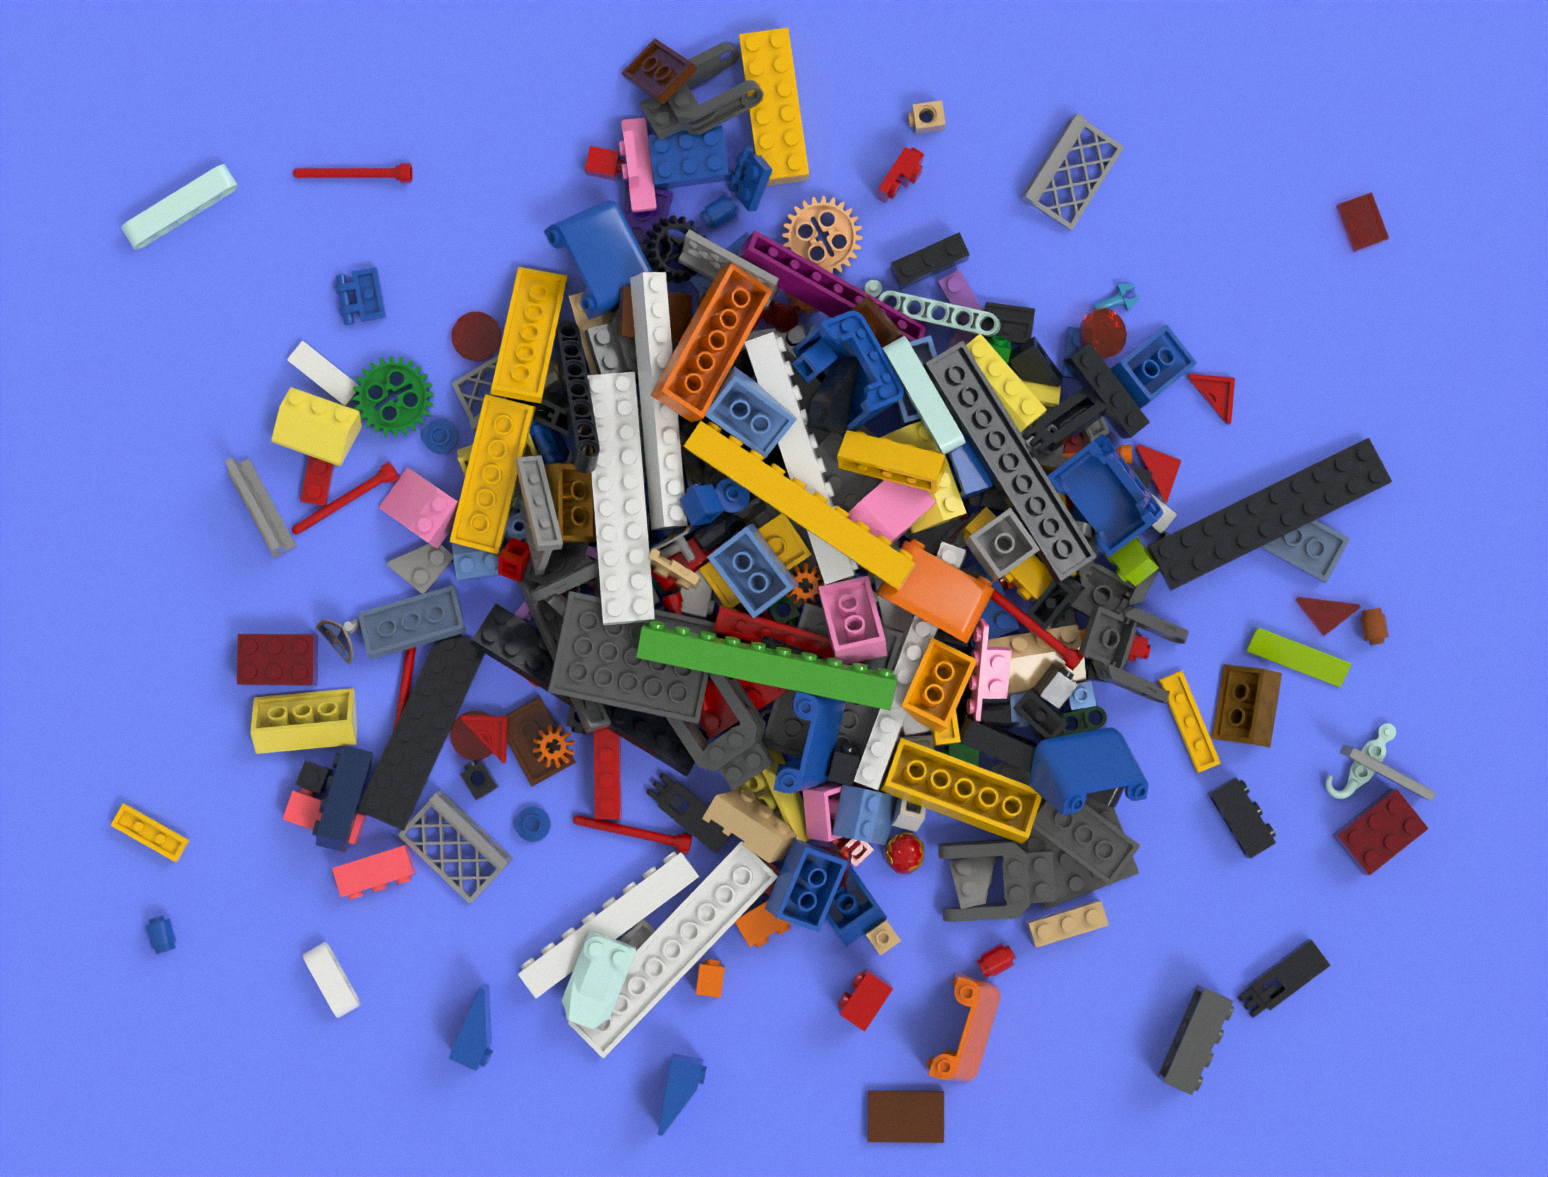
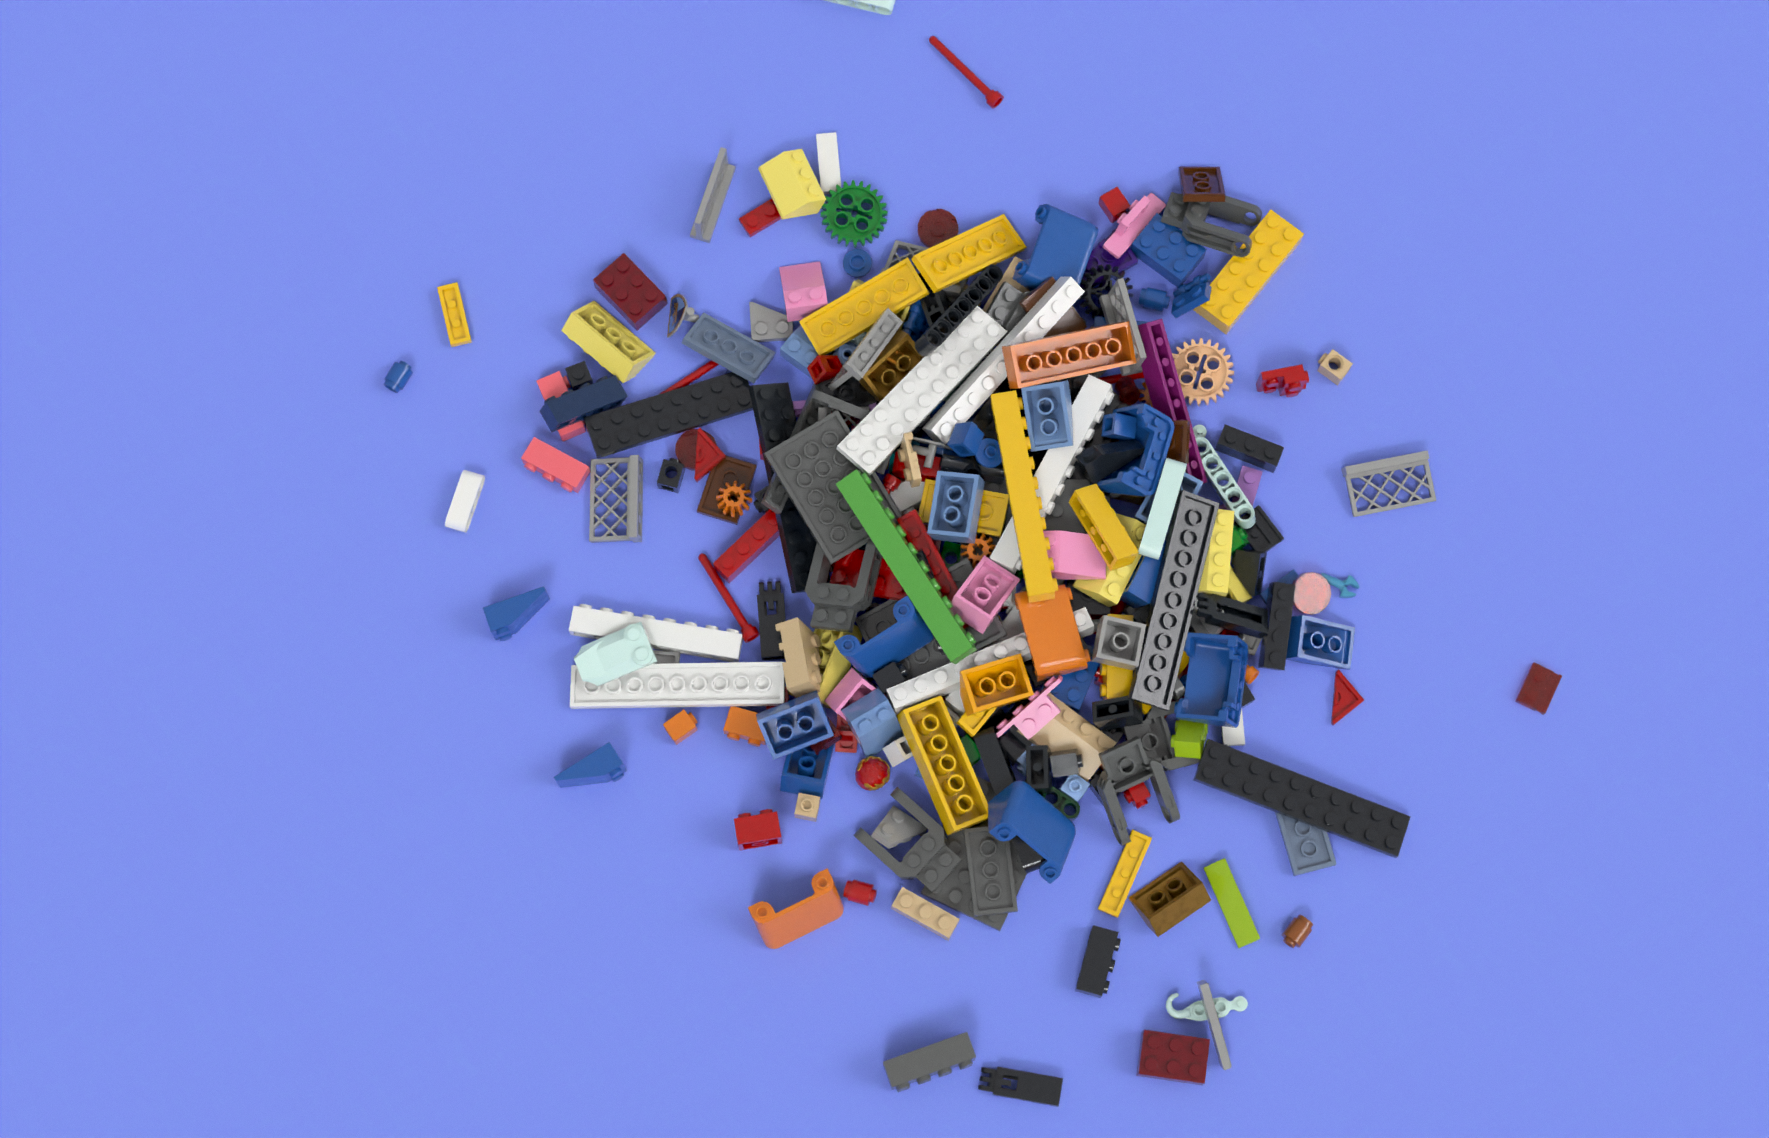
camera: 45 degrees right, 10 degrees down
(368, 294) = (900, 145): blue plate -> none
(385, 474) = (804, 252): red piece -> none
(533, 824) = (674, 533): blue piece -> none
(905, 1116) = (708, 928): reddish brown tile -> none
(1070, 656) = (1091, 753): red piece -> none
(1163, 469) = (1262, 708): red tile -> none
(1326, 614) = (1275, 895): clear red tile -> none

